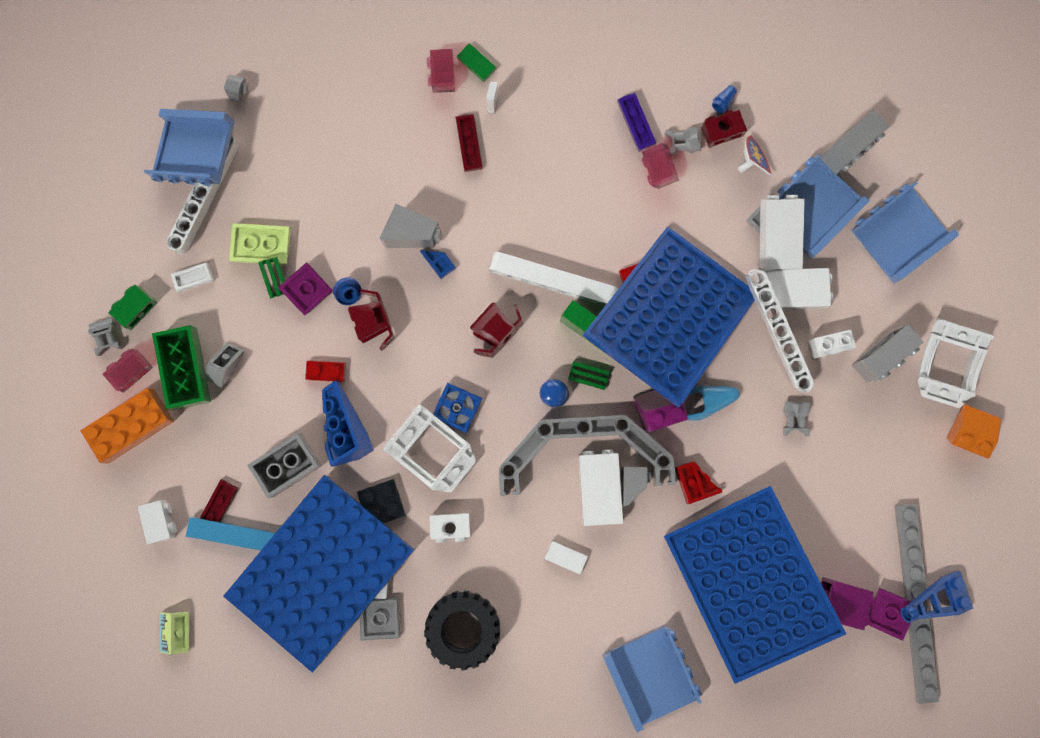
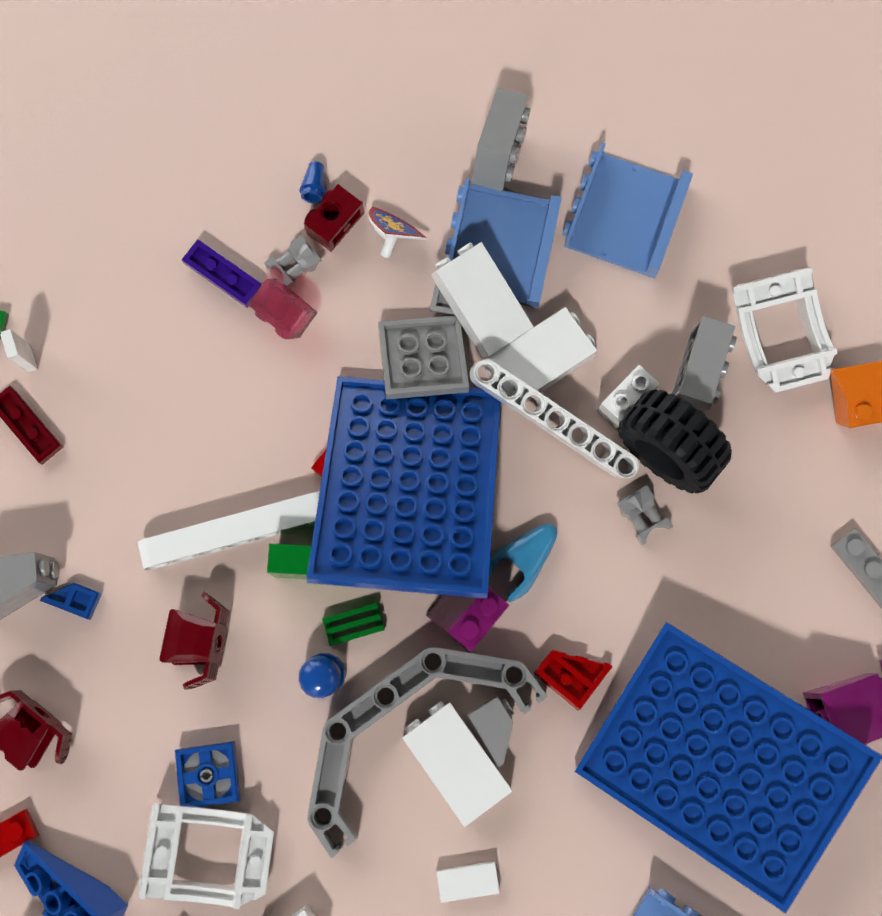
camera: 30 degrees left, 5 degrees down
(725, 245) = (423, 357): none -> light grey plate
(843, 387) = (675, 441): none -> black tyre

